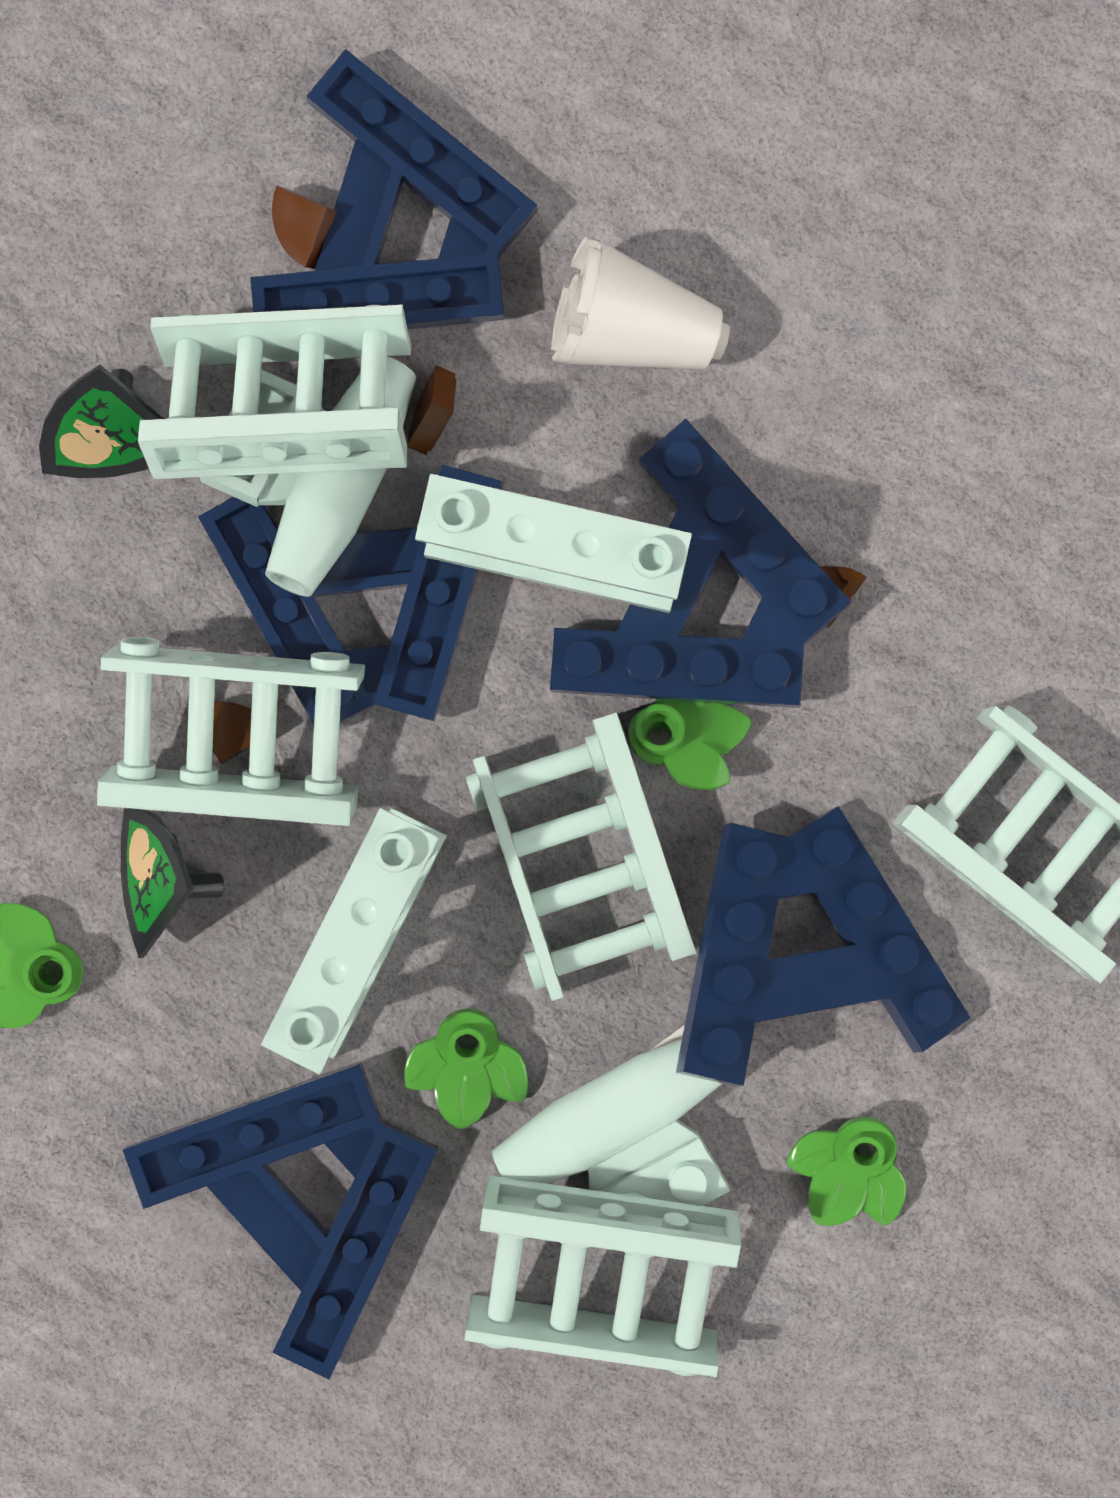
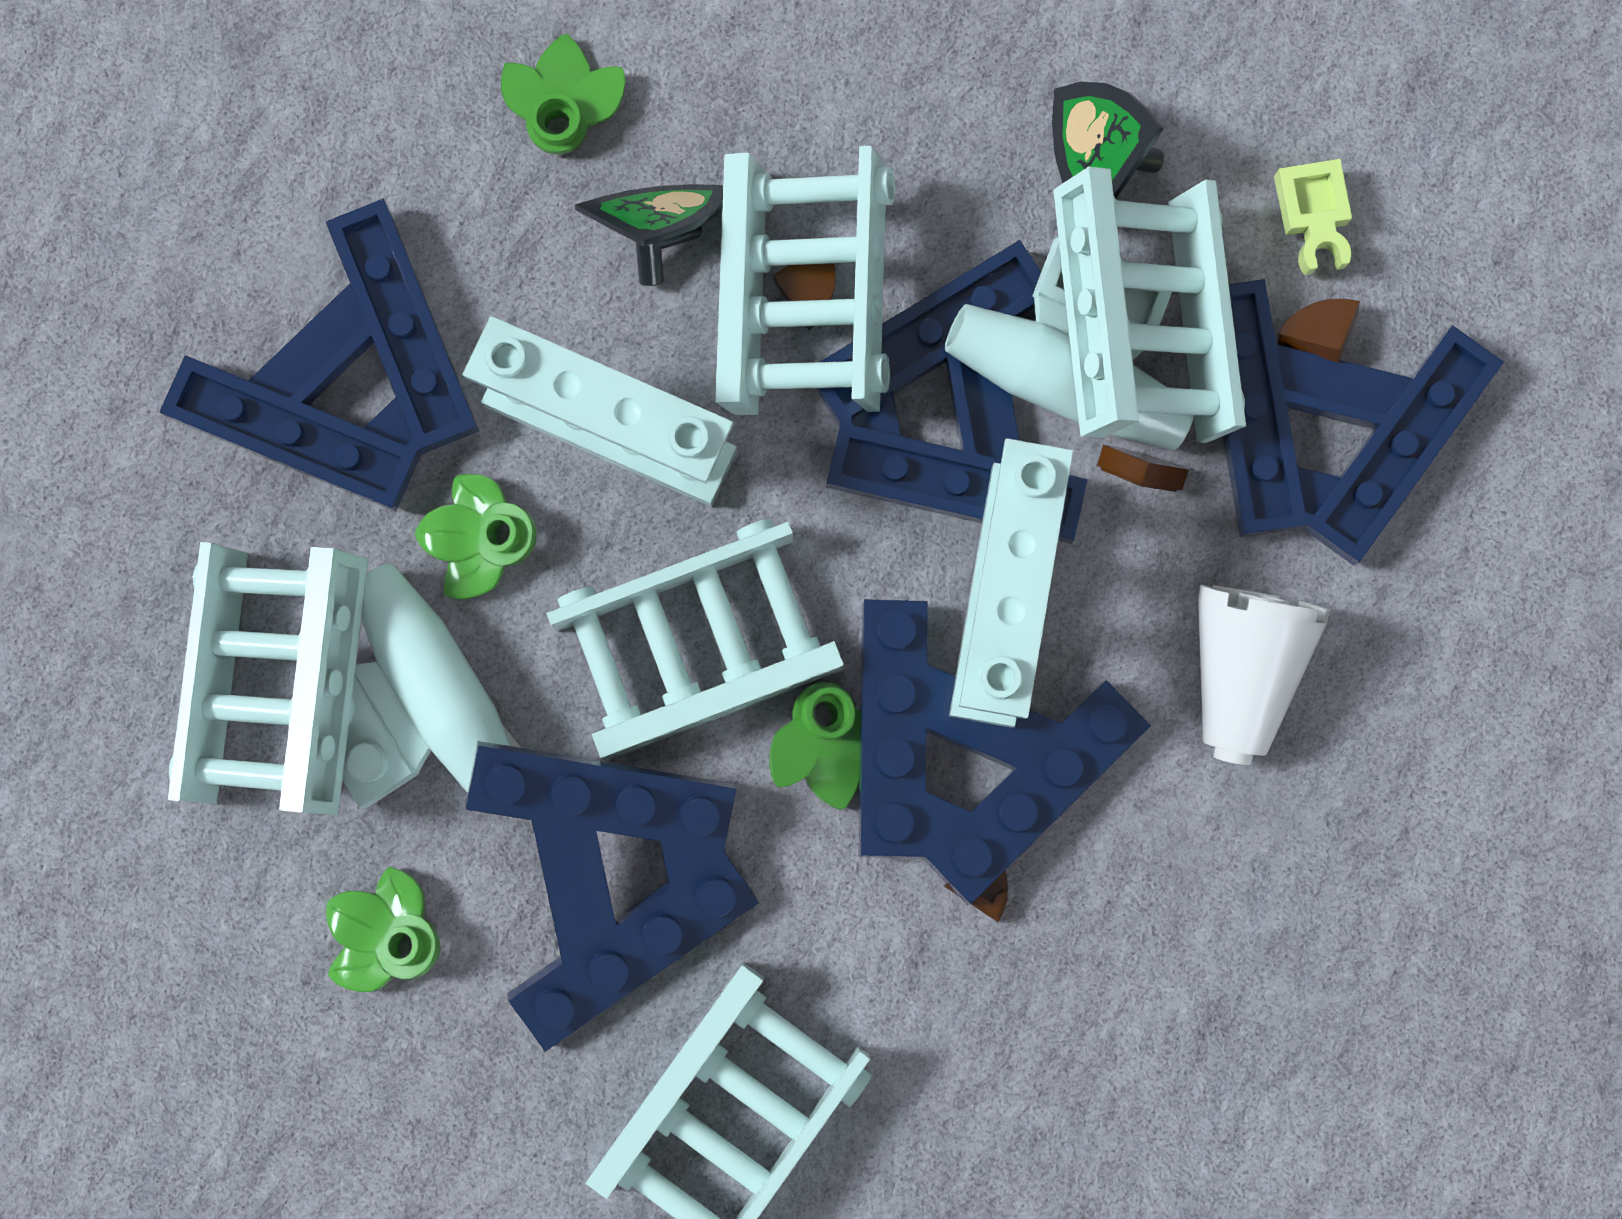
camera: 80 degrees right, 5 degrees down
(174, 223) = (1315, 203): none -> yellowish green plate

